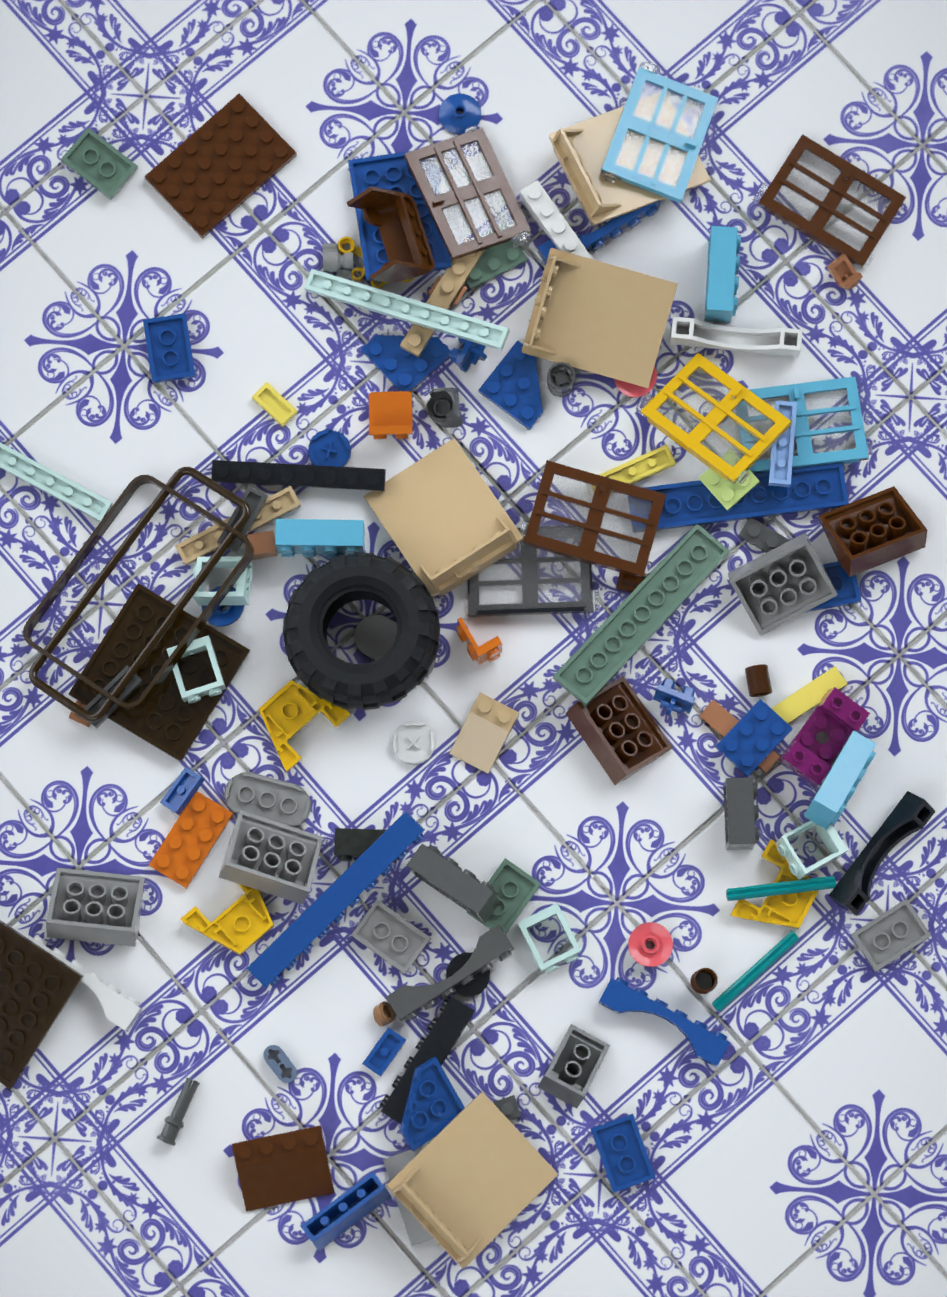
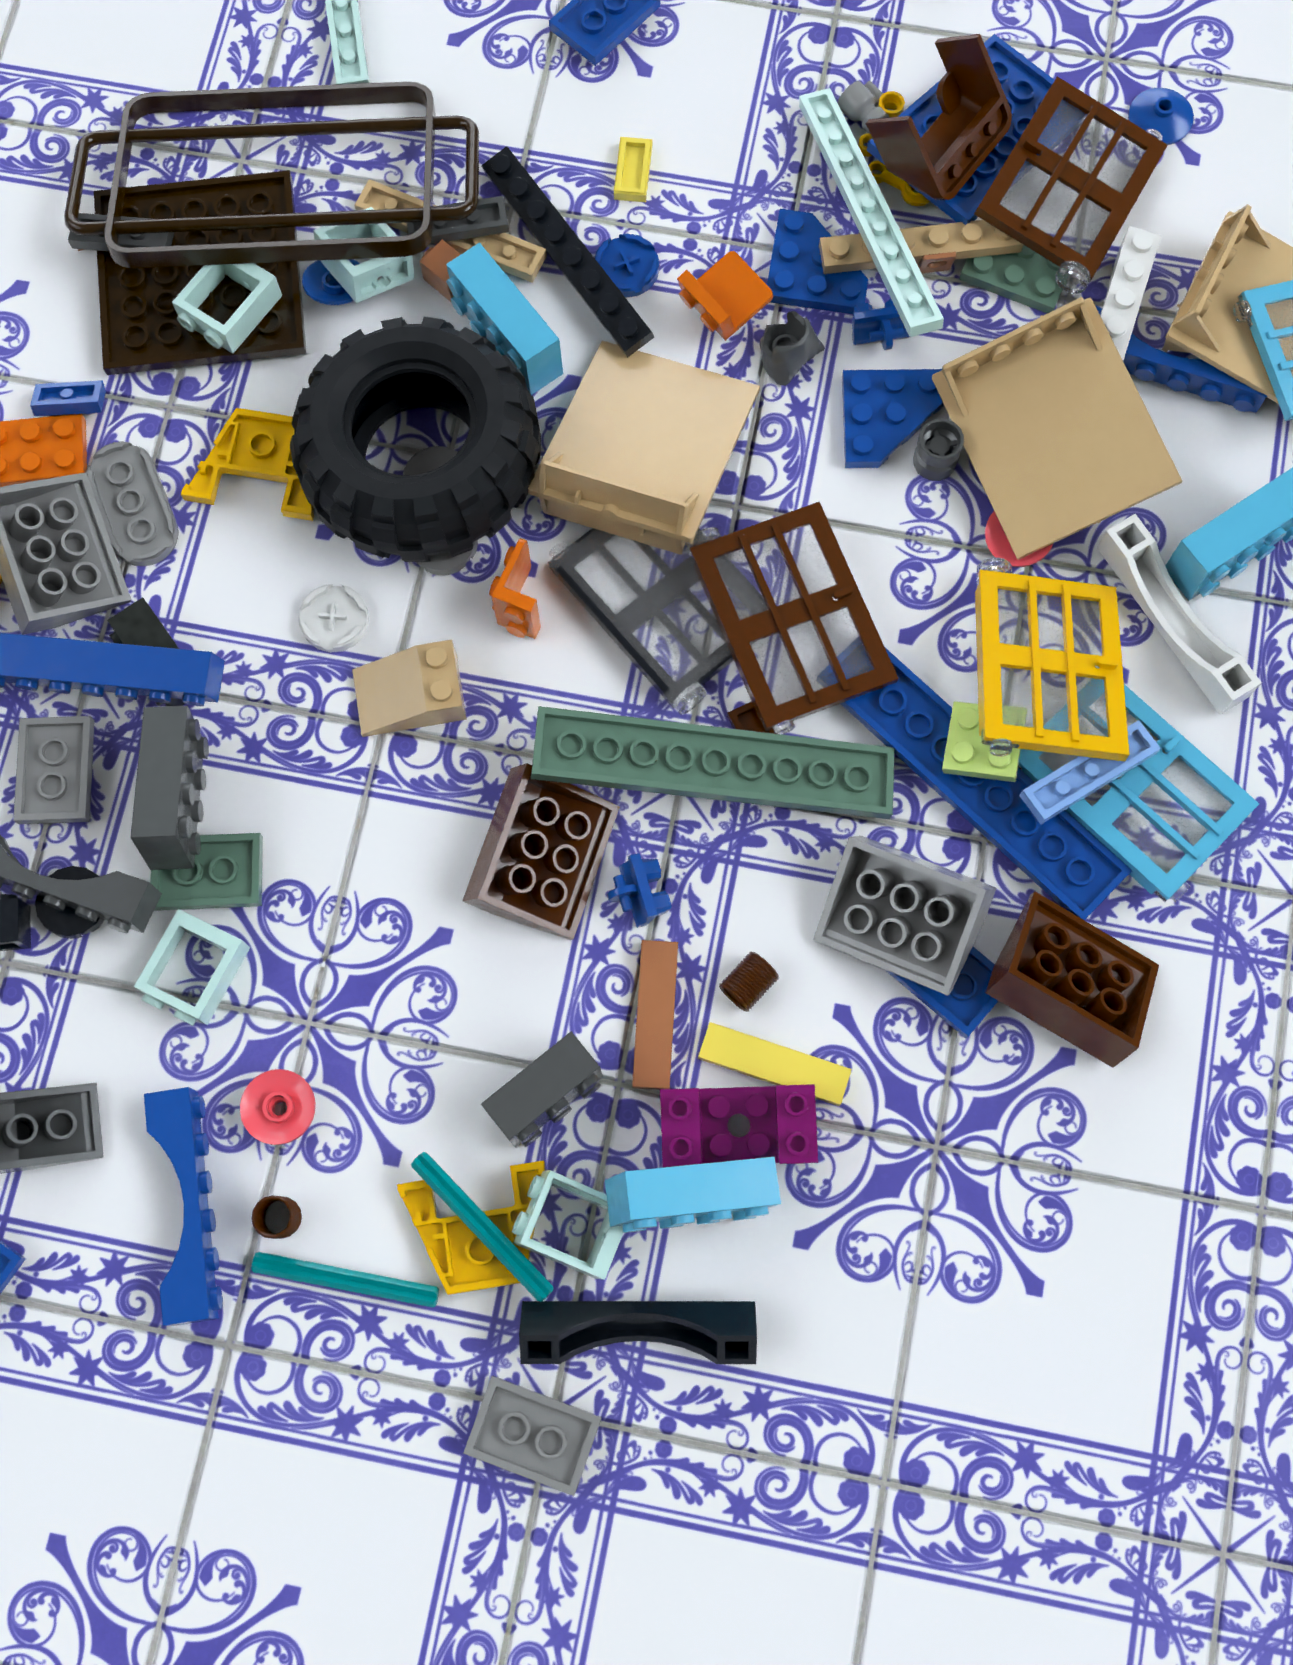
camera: 55 degrees right, 5 degrees down
(642, 466) = (913, 630): light yellow tile -> none
(753, 738) = (665, 1033): blue plate -> none
(761, 536) = (946, 840): dark grey plate -> none

